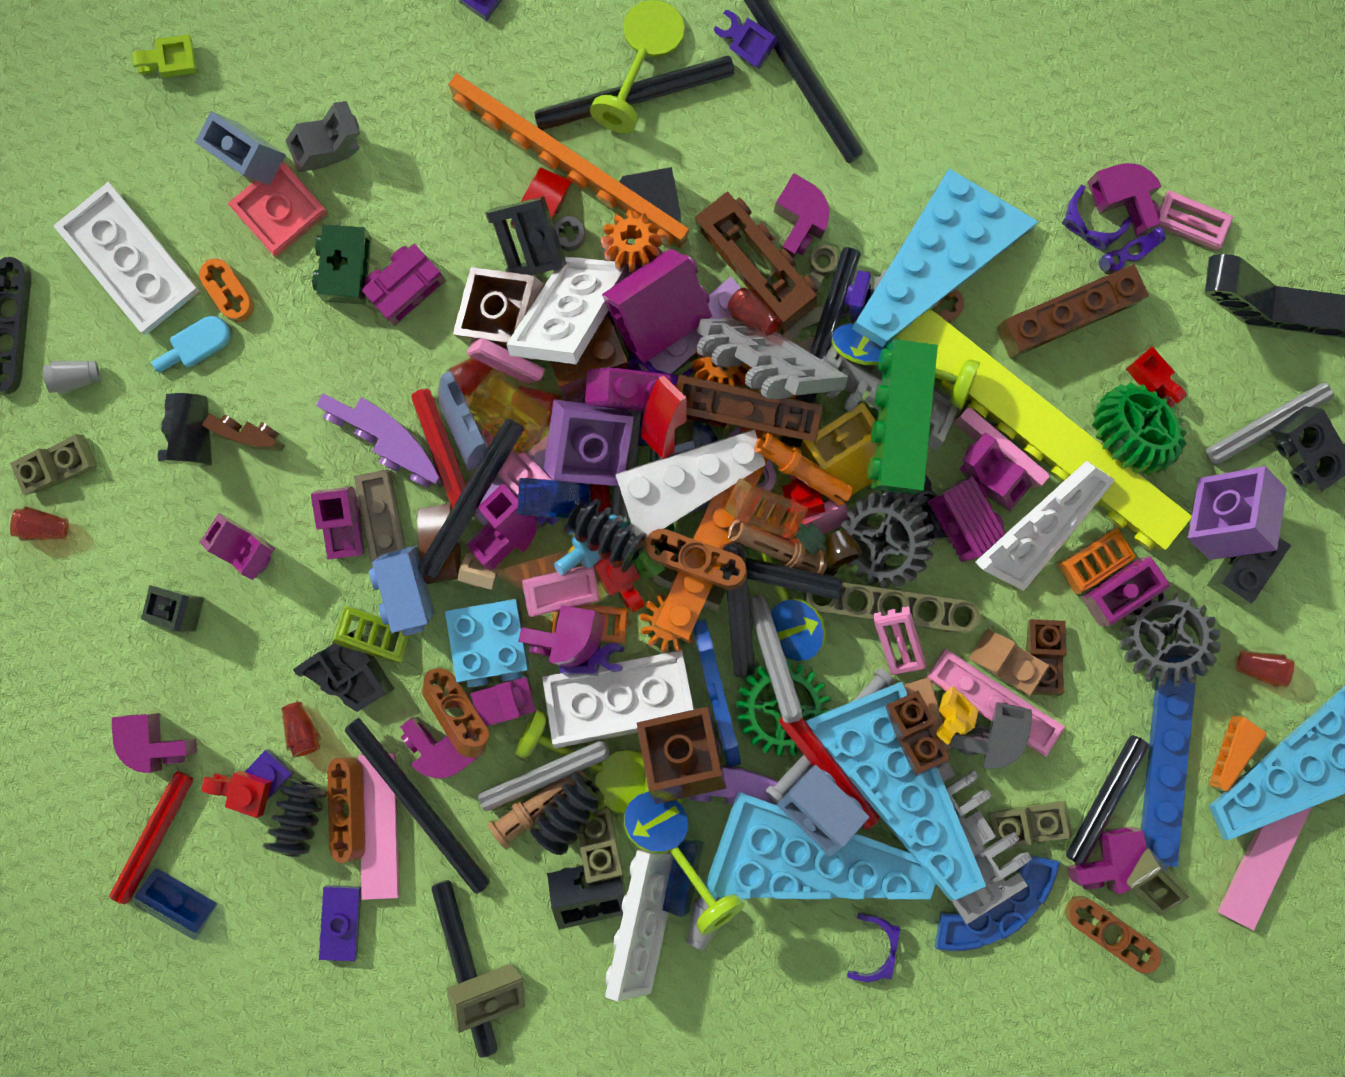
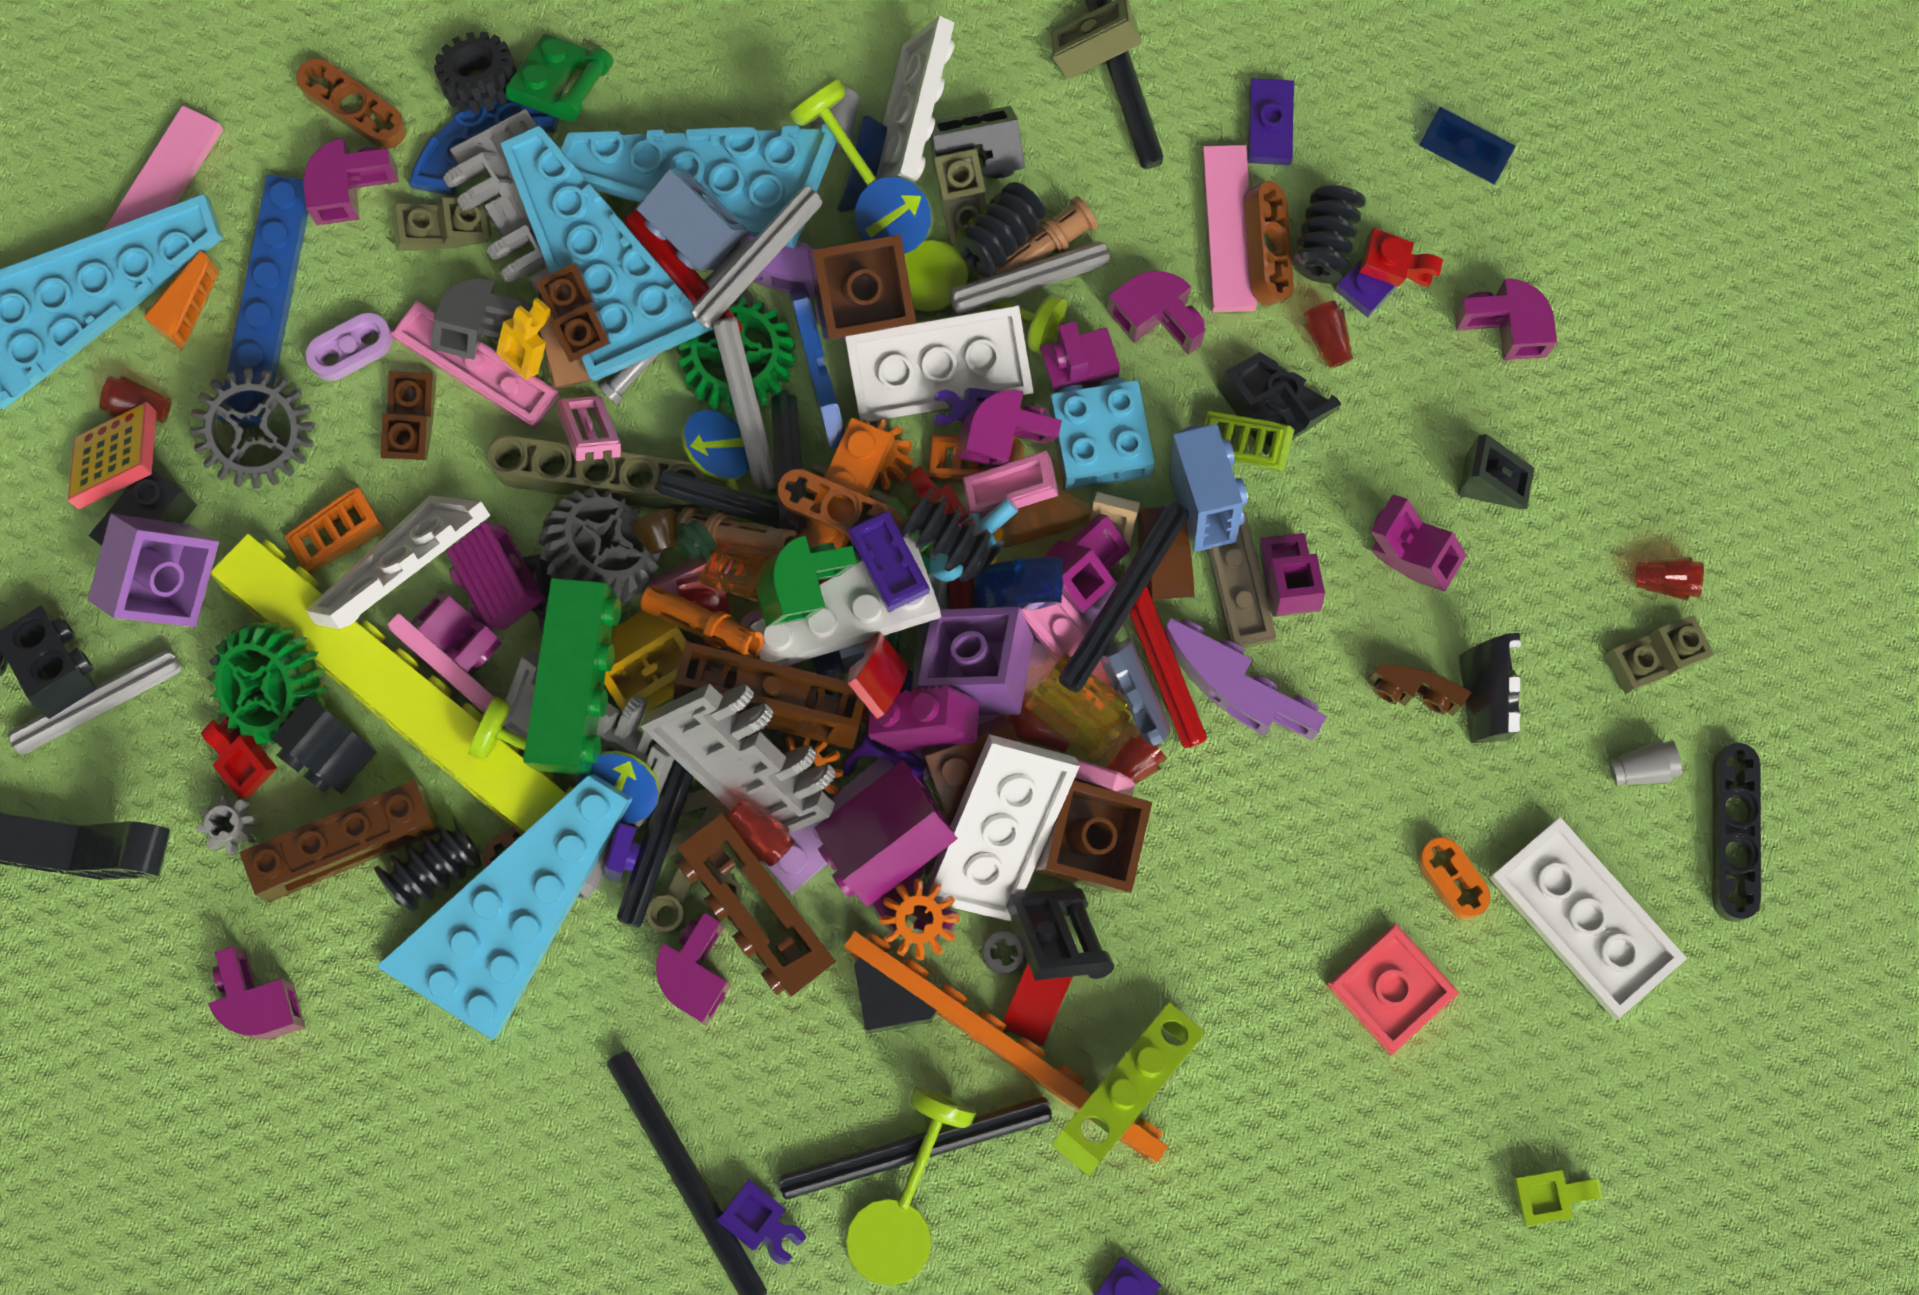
camera: 175 degrees left, 10 degrees down
(151, 837) = (1501, 216): red axle -> none
(195, 343) = (1489, 809): medium azure piece -> none
(240, 148) = (1444, 1057): sand blue brick -> none
(324, 141) = (1334, 1074): dark grey brick -> none
(332, 246) = (1288, 930): dark green brick -> none
(402, 283) = (1222, 880): magenta brick -> none
(417, 805) = (1184, 246): black axle -> none
(455, 726) = (1134, 312): dark orange beam -> none
(475, 122) = (1129, 1088): none -> lime piece
(656, 511) = (888, 561): none -> dark purple plate
(734, 487) = (789, 579): none -> green brick
(768, 776) = (756, 256): none -> light grey axle
(887, 968) = (623, 67): dark purple cap -> none
(950, 960) = (548, 71): none -> green plate
(1002, 291) = (430, 866): none -> black piece
(1009, 662) = (455, 407): medium nougat slope -> none
(1021, 974) = (470, 56): none -> black tyre
(1076, 225) = (329, 968): dark purple cap -> none
(1092, 378) = (322, 745): none -> black brick
(1096, 716) = (348, 343): none -> lavender plate
(1107, 800) = (344, 252): black axle -> none
(1125, 591) = (302, 486): magenta brick -> none
(1146, 244) = (232, 934): dark purple cap -> none
(1156, 884) = (293, 152): olive slope -> none
(1167, 329) = (218, 832): none -> light grey gear
(1190, 233) = (202, 986): bright pink tile -> none
(1279, 615) = (112, 455): none -> tile

